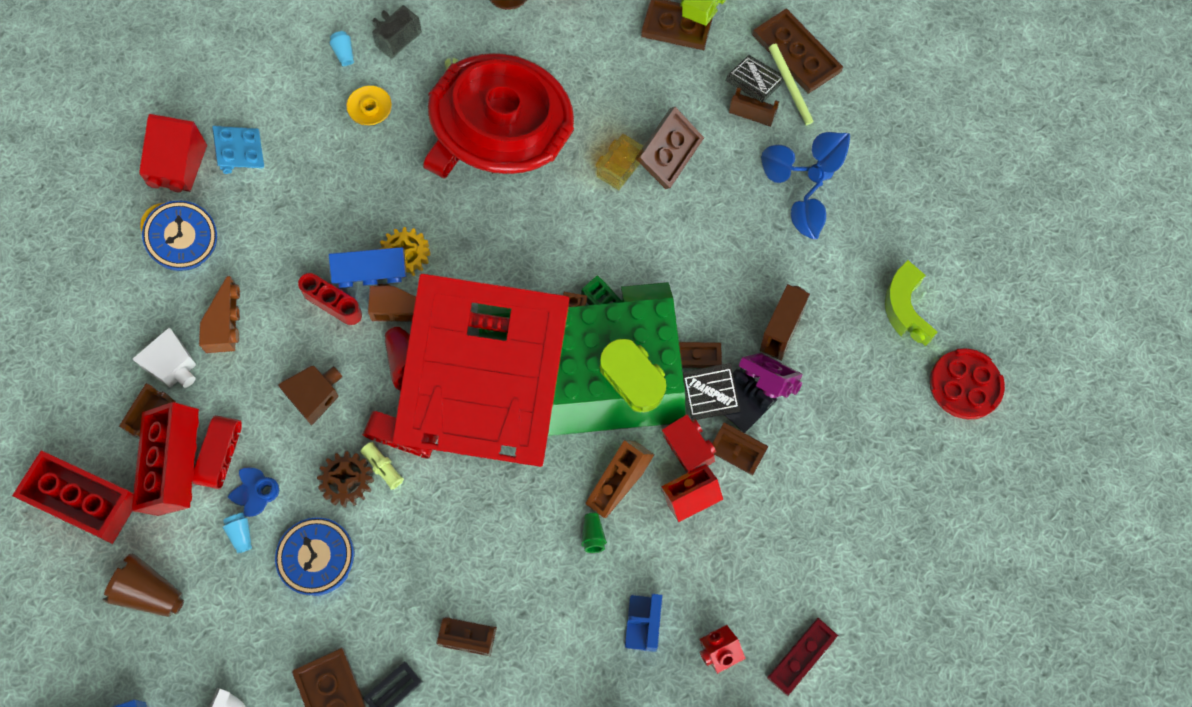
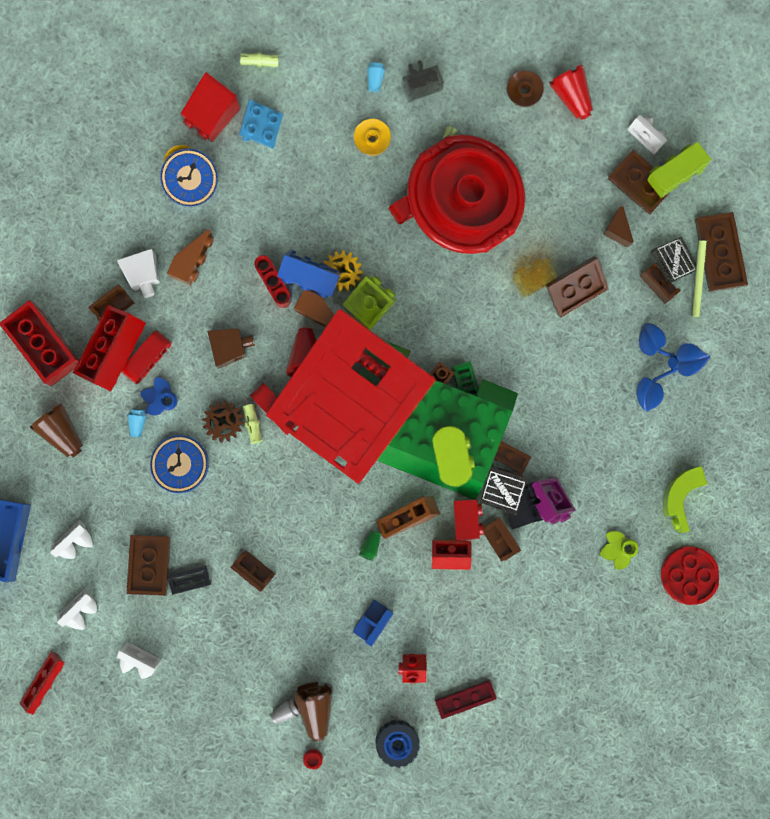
camera: 25 degrees right, 15 degrees up
(205, 86) = (259, 59): none -> yellowish green pin
(453, 261) = (370, 301): none -> lime plate
(682, 76) = (619, 229): none -> reddish brown slope
(784, 321) = (584, 466): reddish brown brick -> none
(871, 397) = (616, 550): none -> lime plate

